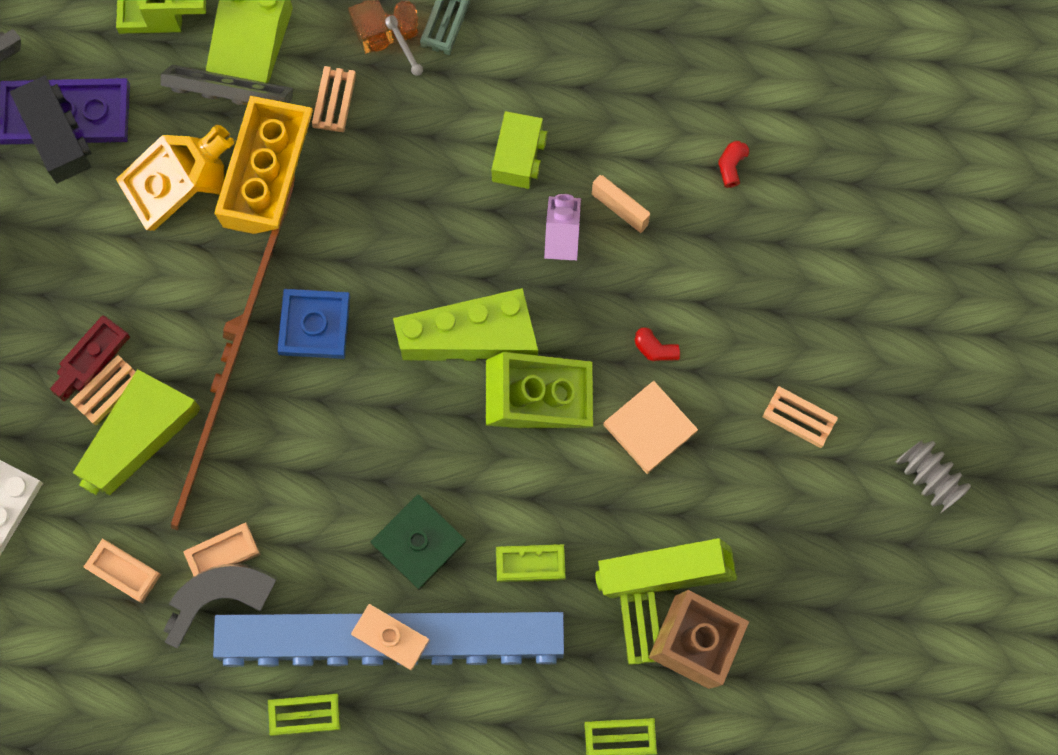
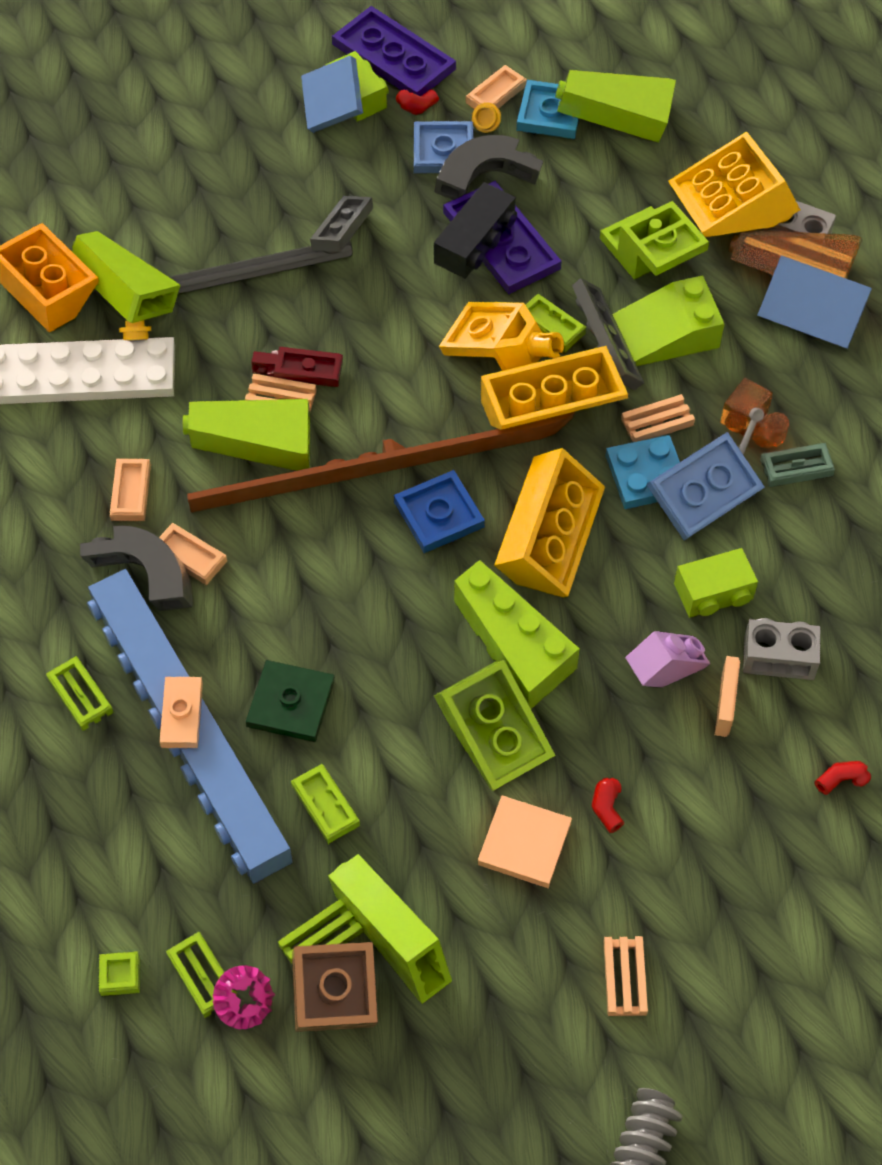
camera: 60 degrees right, 15 degrees down
(191, 121) = (553, 319): none -> lime plate
(378, 138) = (638, 464): none -> dark azure plate
(383, 243) = (550, 524): none -> yellow slope
(425, 102) = (705, 486): none -> medium blue tile
(610, 141) = (781, 657): none -> light grey brick
(649, 710) = (227, 1004): none -> dark pink gear

